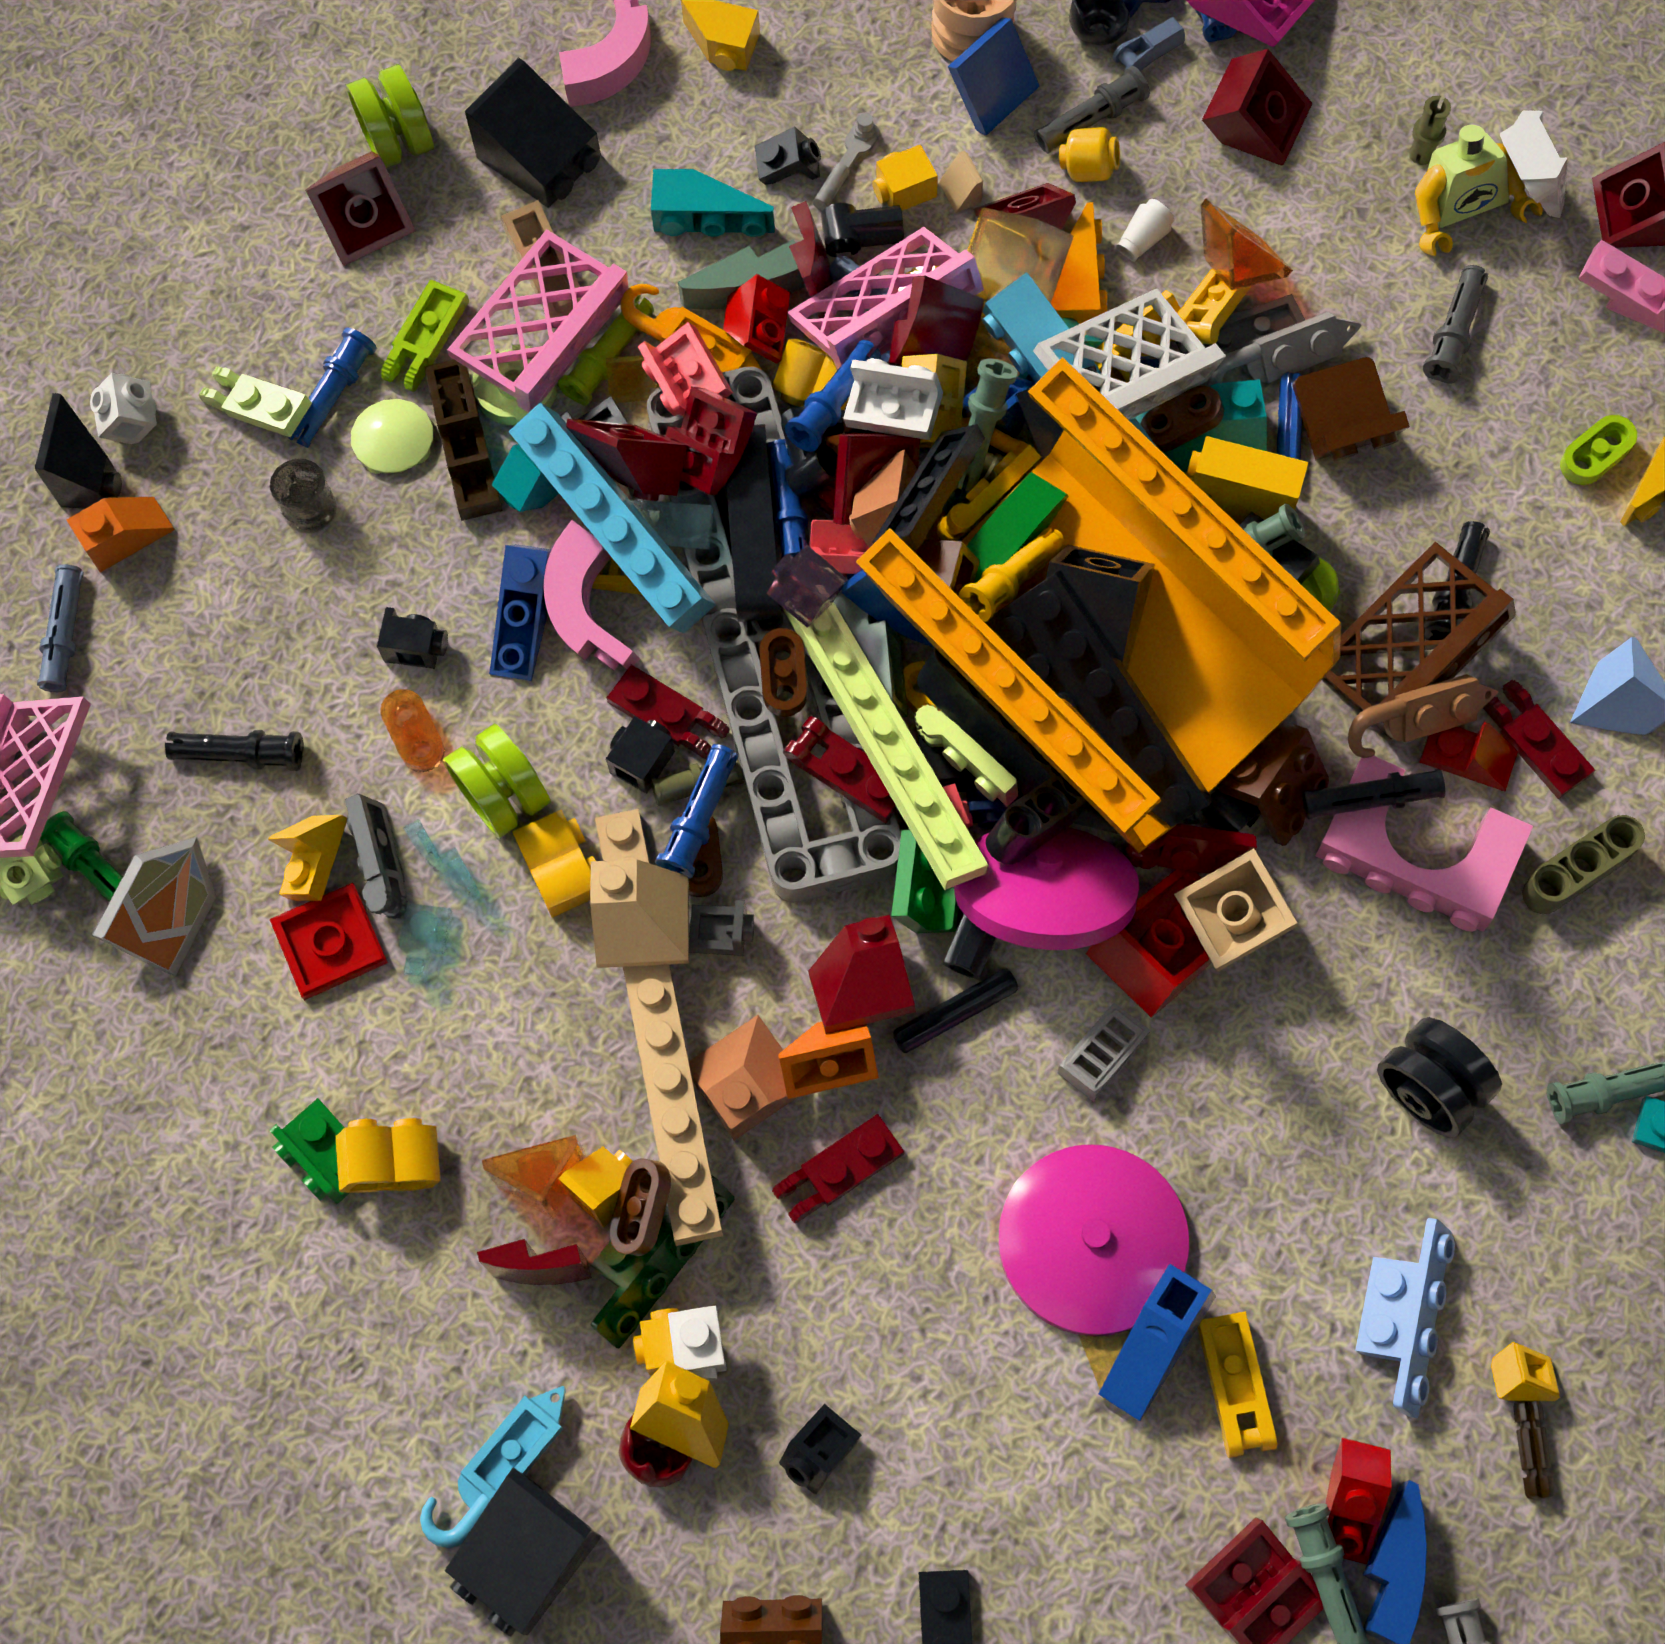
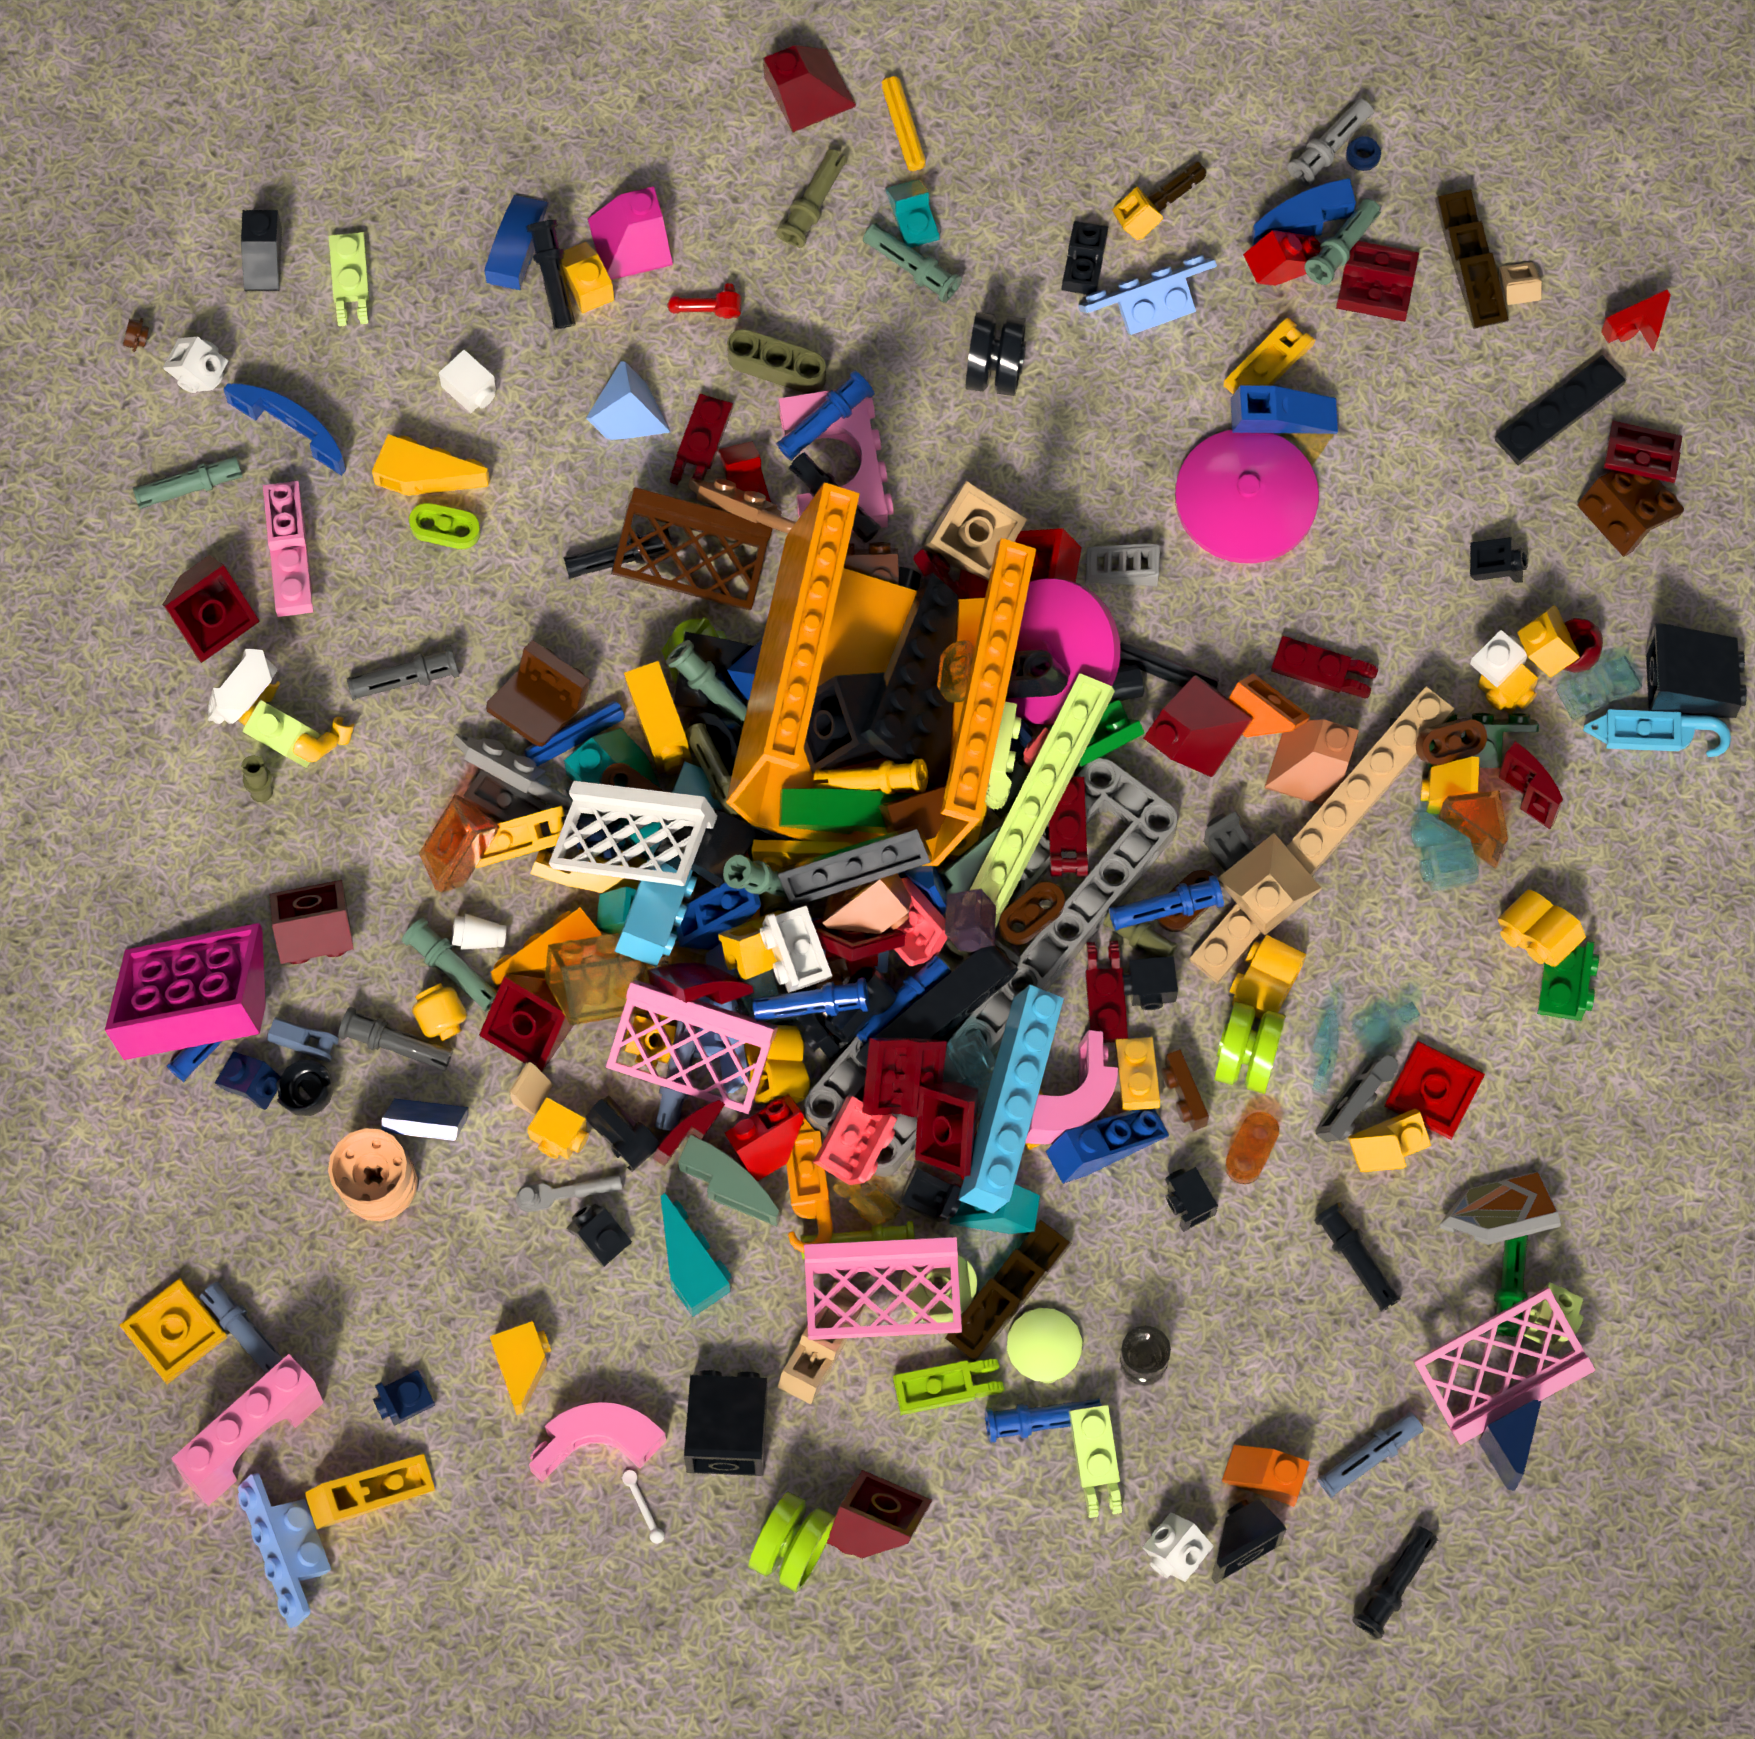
camera: 130 degrees left, 0 degrees up
(497, 51) = (630, 1478): none -> white hinge
(500, 705) = (1178, 1076): none -> reddish brown plate
(536, 1119) = (1446, 853): none -> clear light blue slope
(564, 680) = (1137, 1073): none -> yellow plate
(595, 1446) = (1599, 688): none -> clear light blue slope
(1159, 186) = (439, 953): none -> sand green pin
(1481, 866) = (837, 406): none -> blue pin
(1505, 1280) = (1084, 258): none -> black slope

